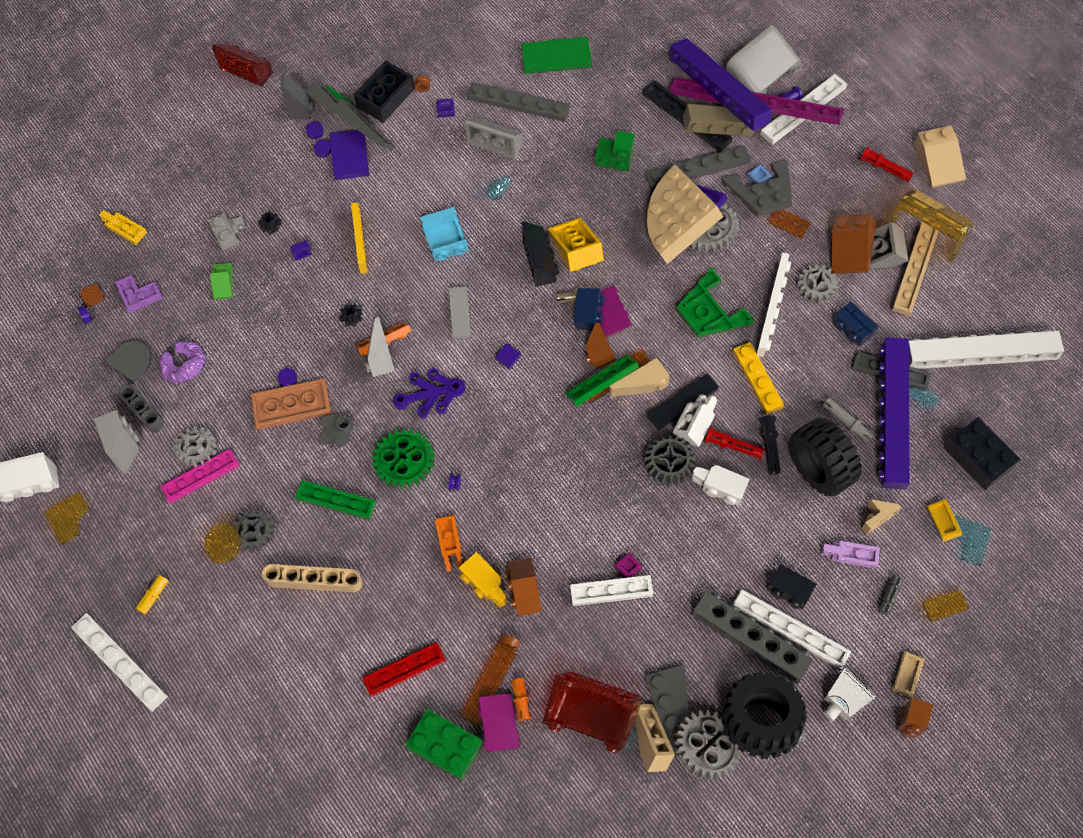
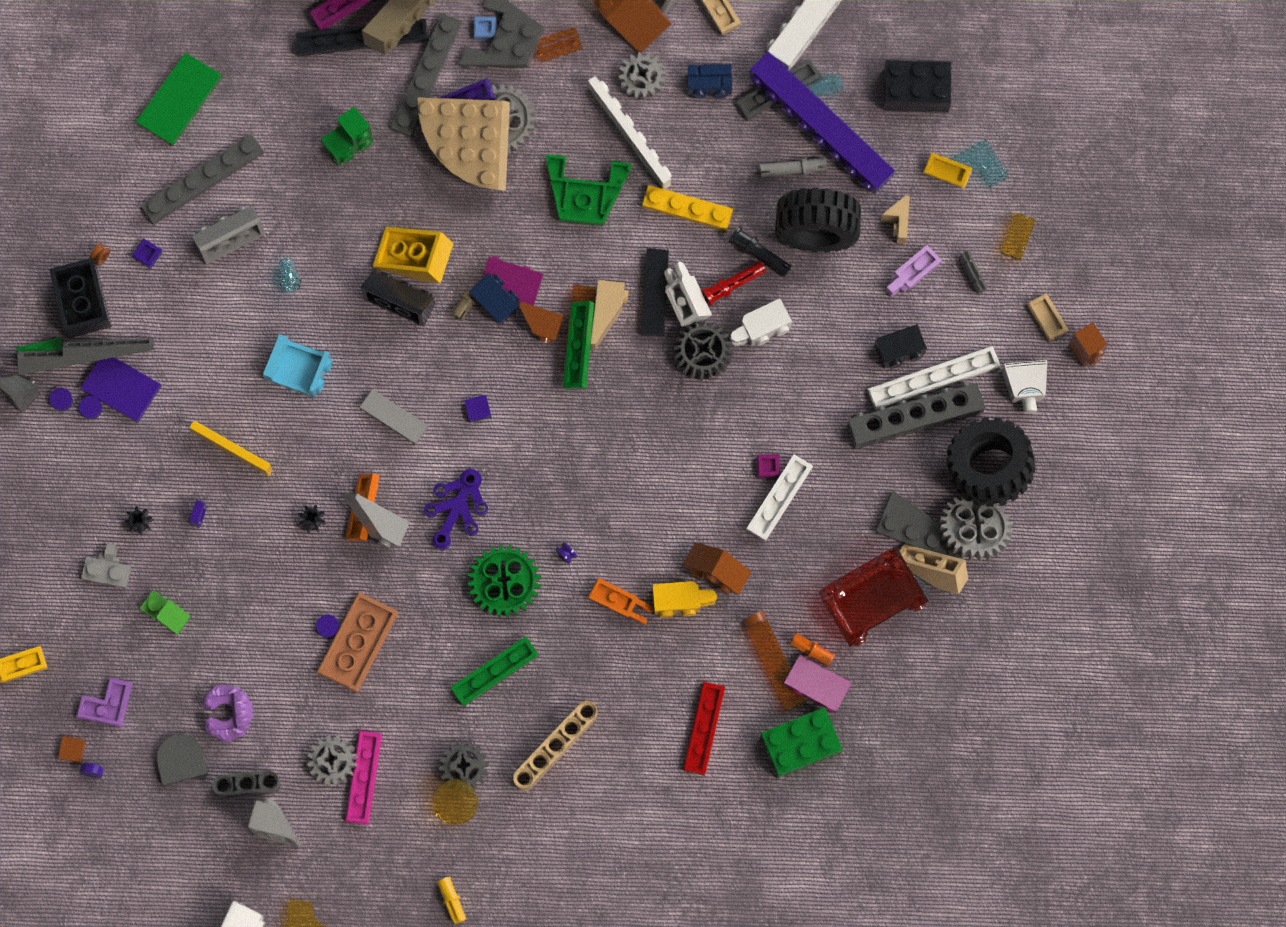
camera: 55 degrees left, 10 degrees up
(333, 430) = (421, 623): dark grey plate -> none

